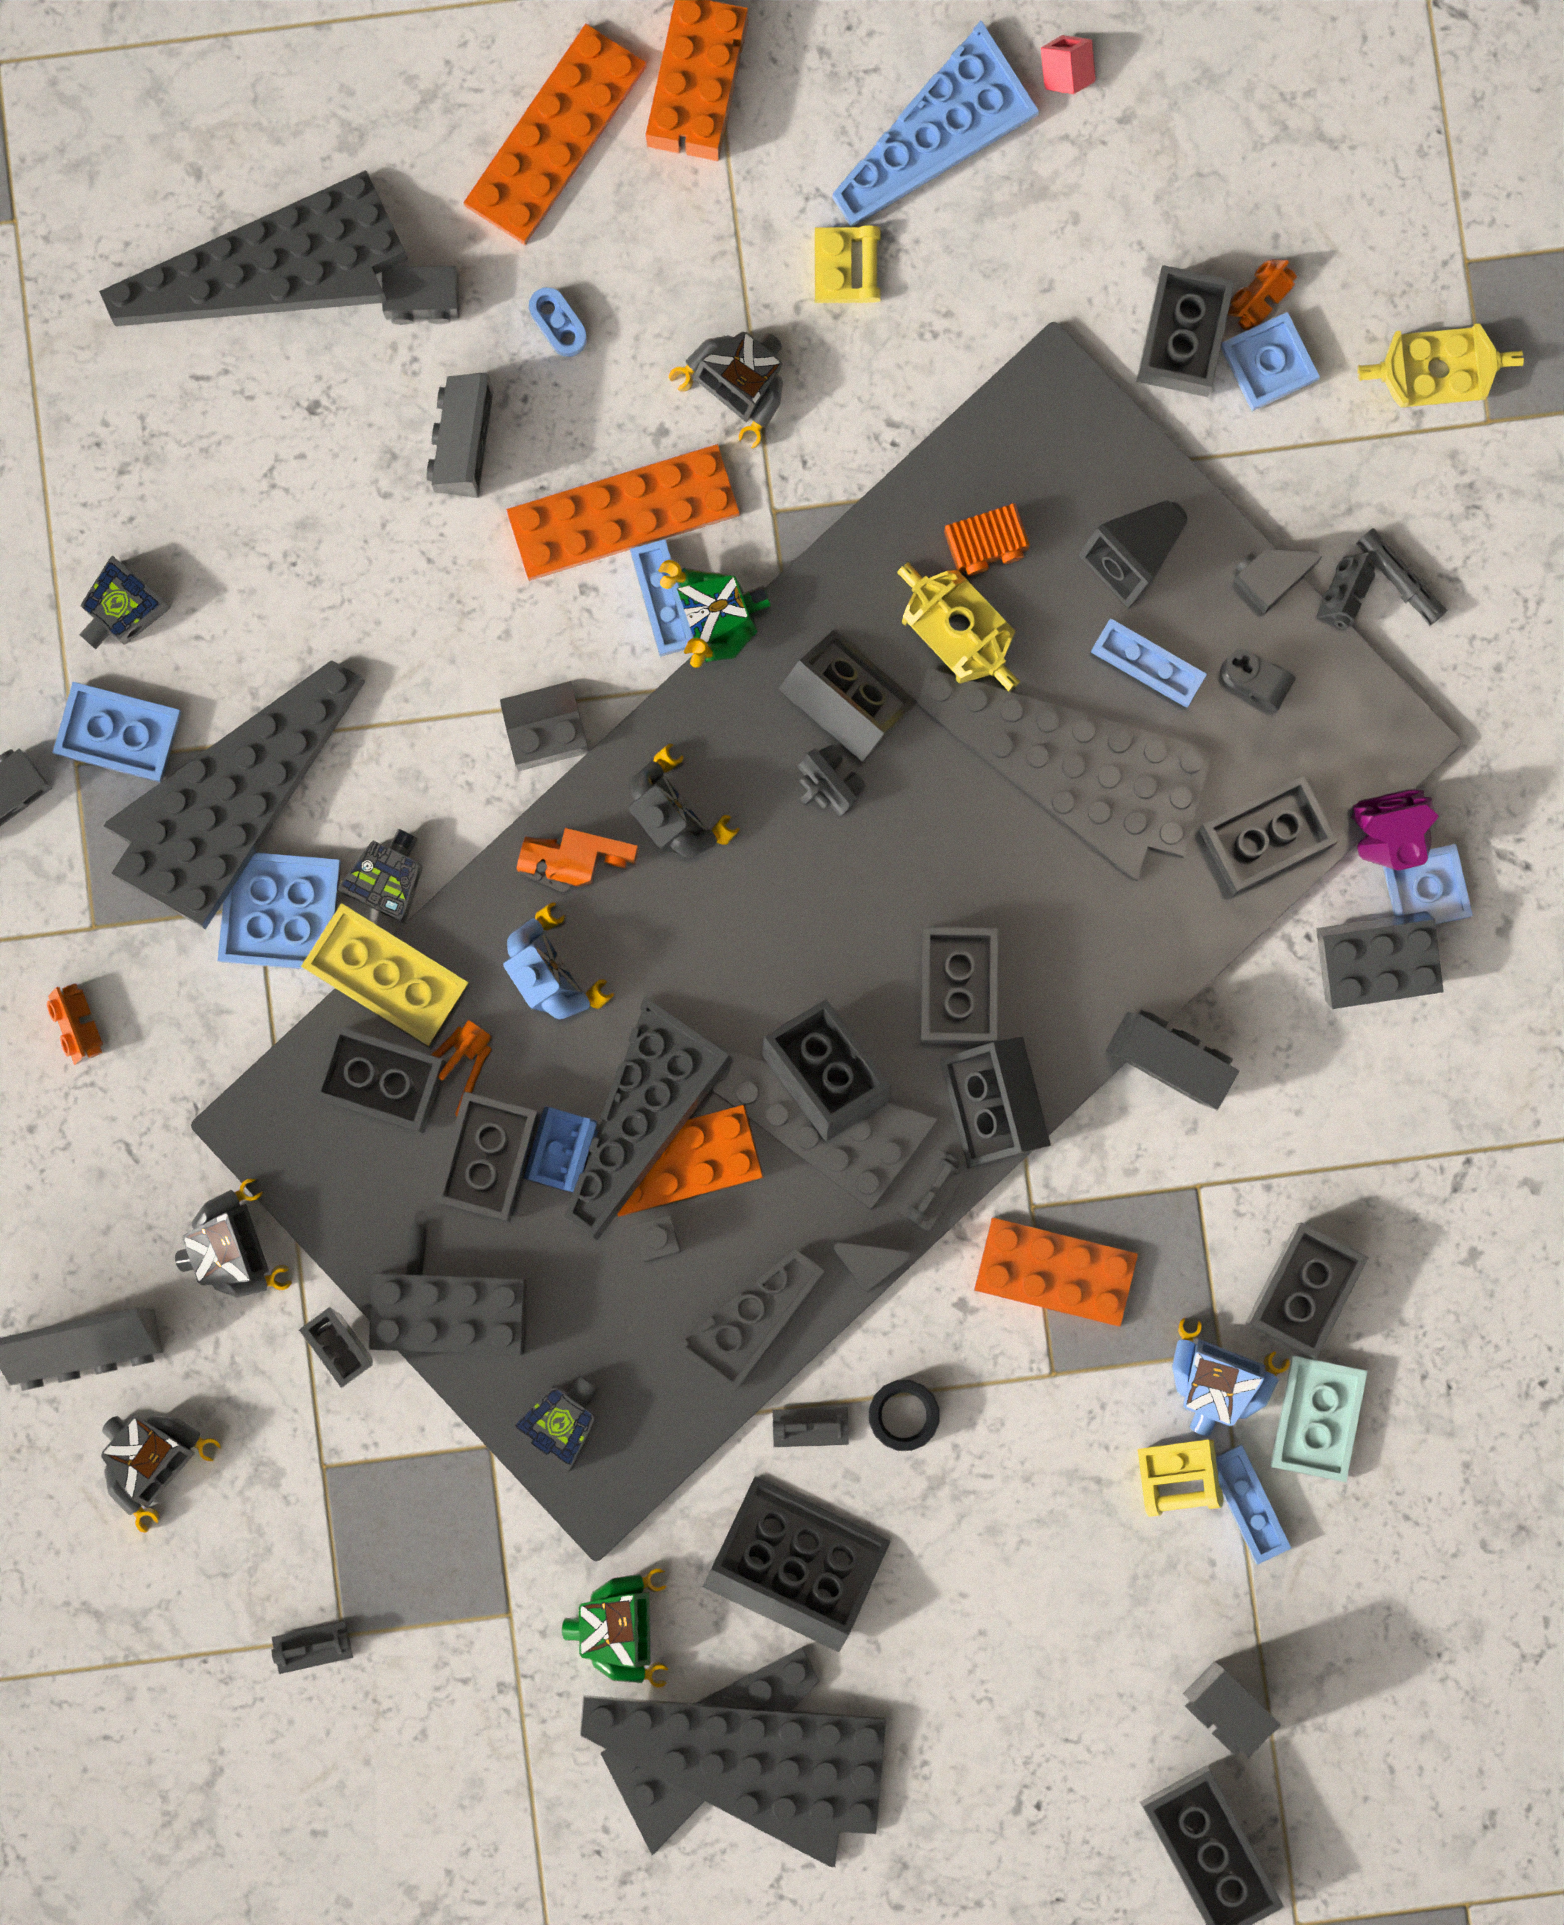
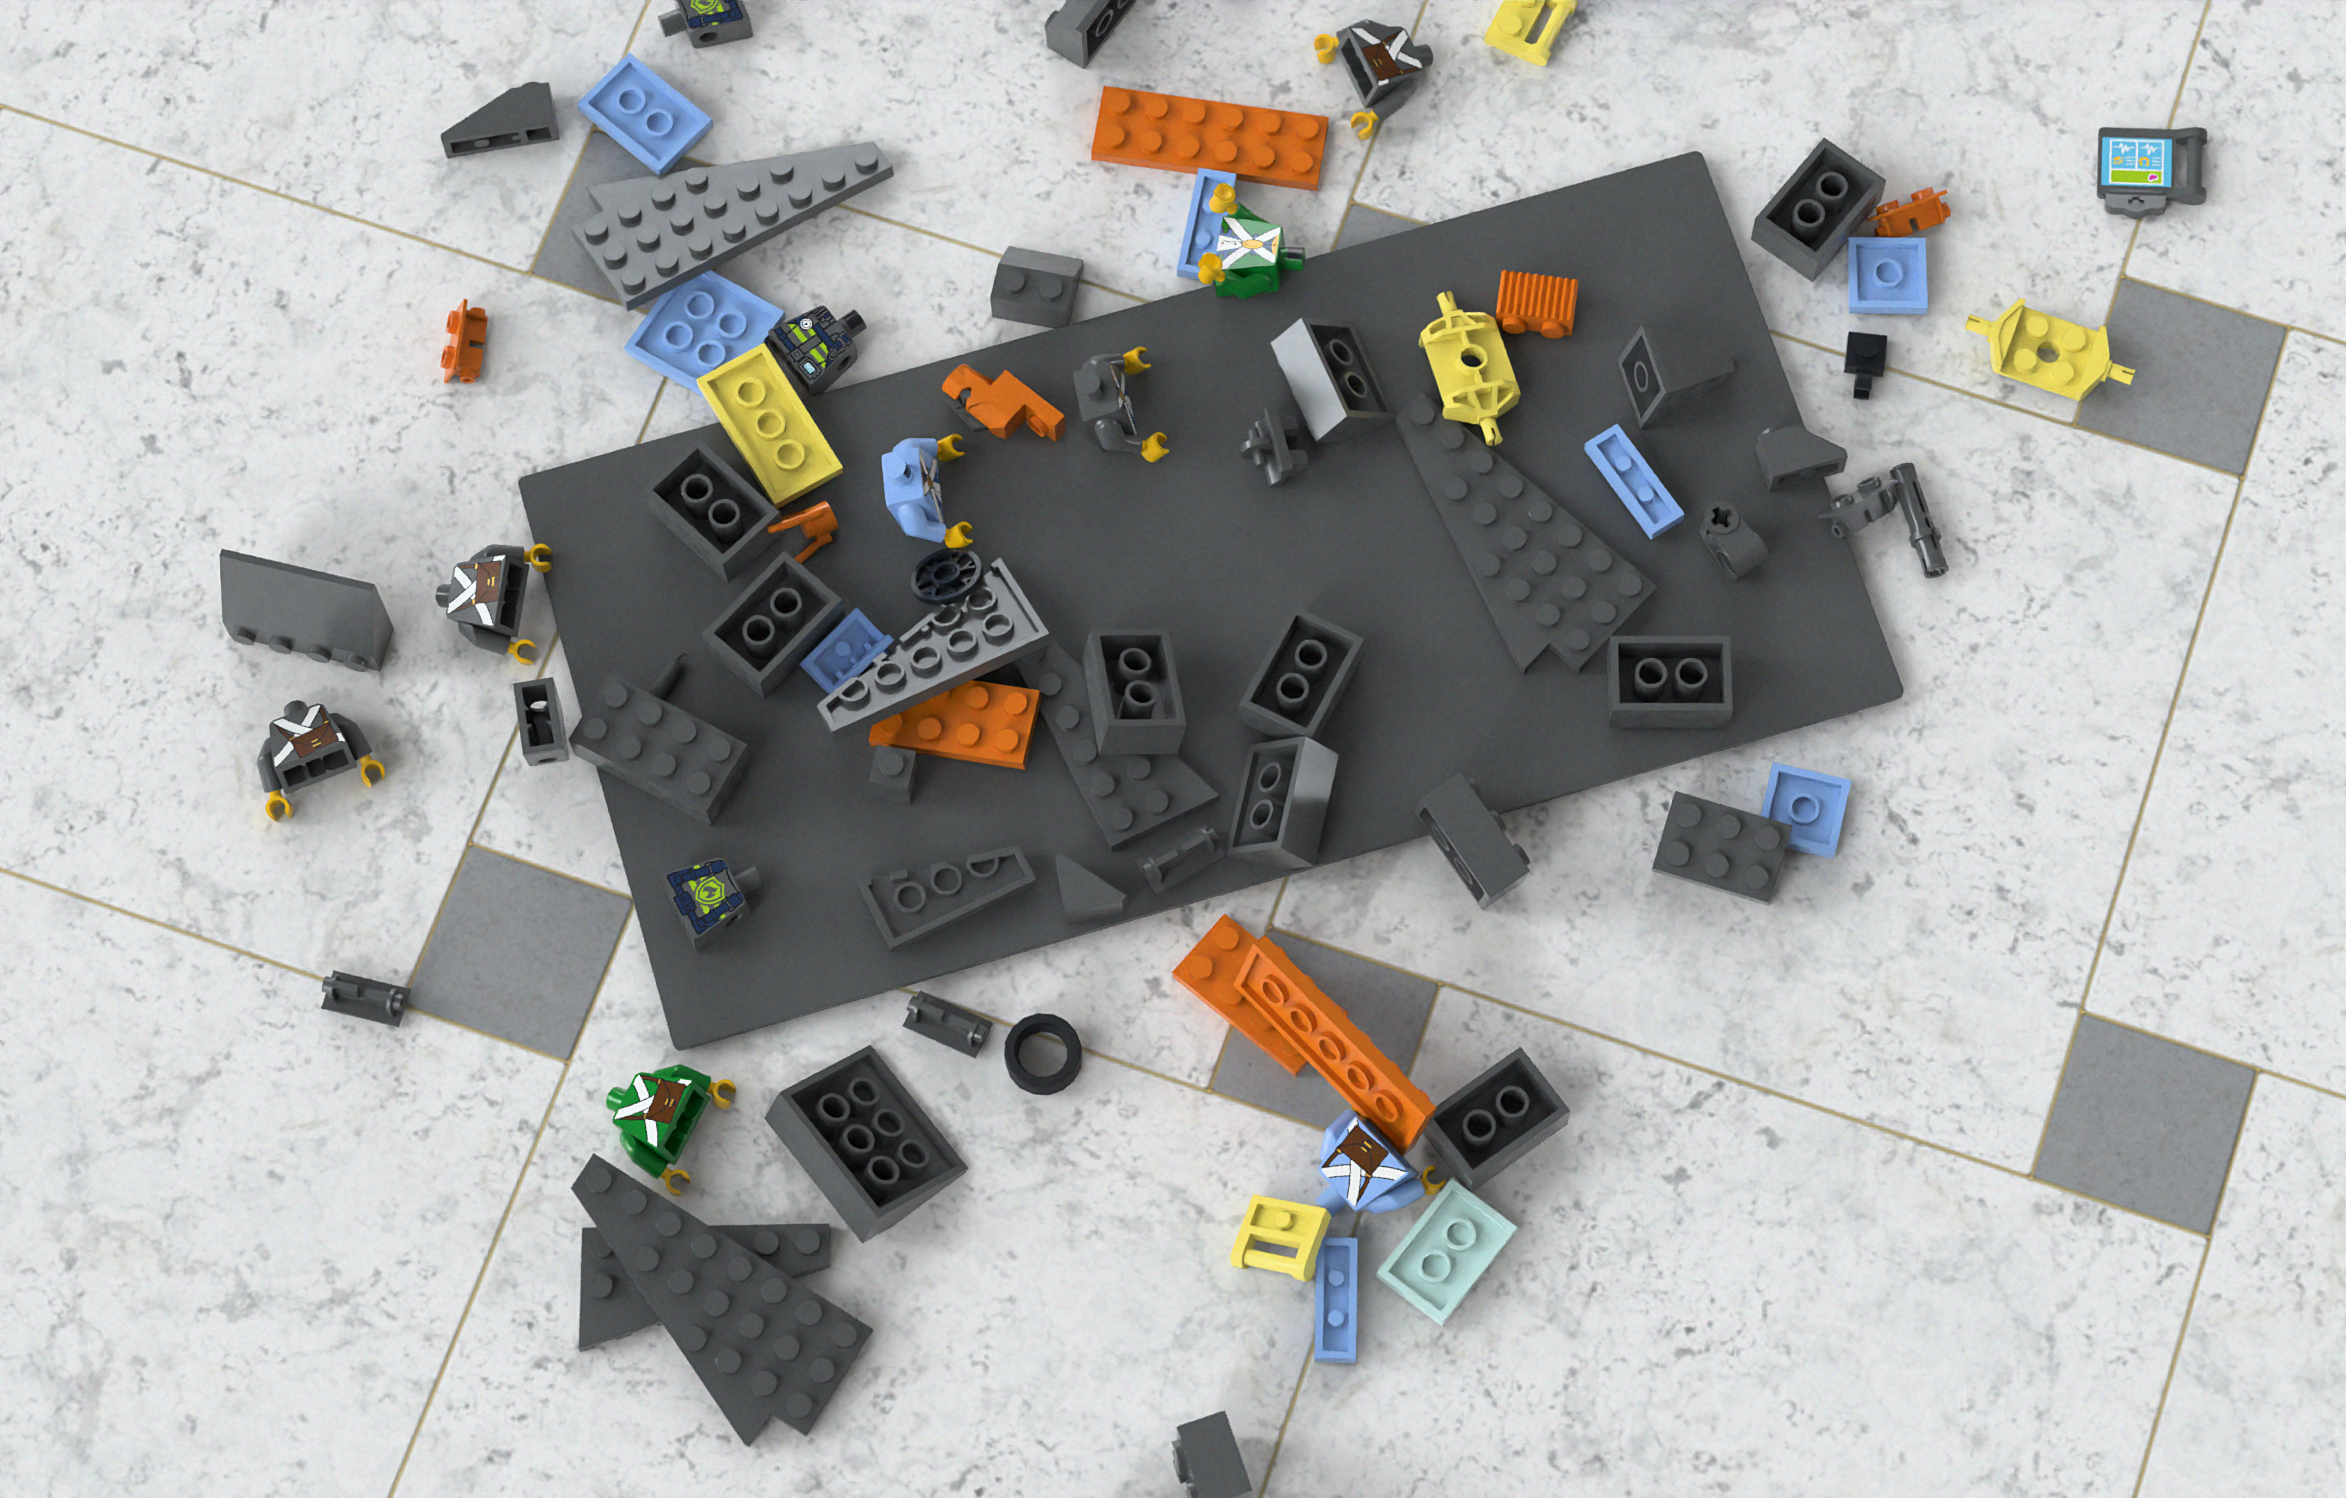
camera: 25 degrees right, 15 degrees down
(609, 1038) = (946, 576): none -> black wheel
(1149, 1300) = (1334, 1045): none -> orange plate
(1286, 447) = (1865, 359): none -> black plate
(1395, 828) = (1797, 734): magenta piece -> none
(1437, 153) = (2139, 169): none -> piece

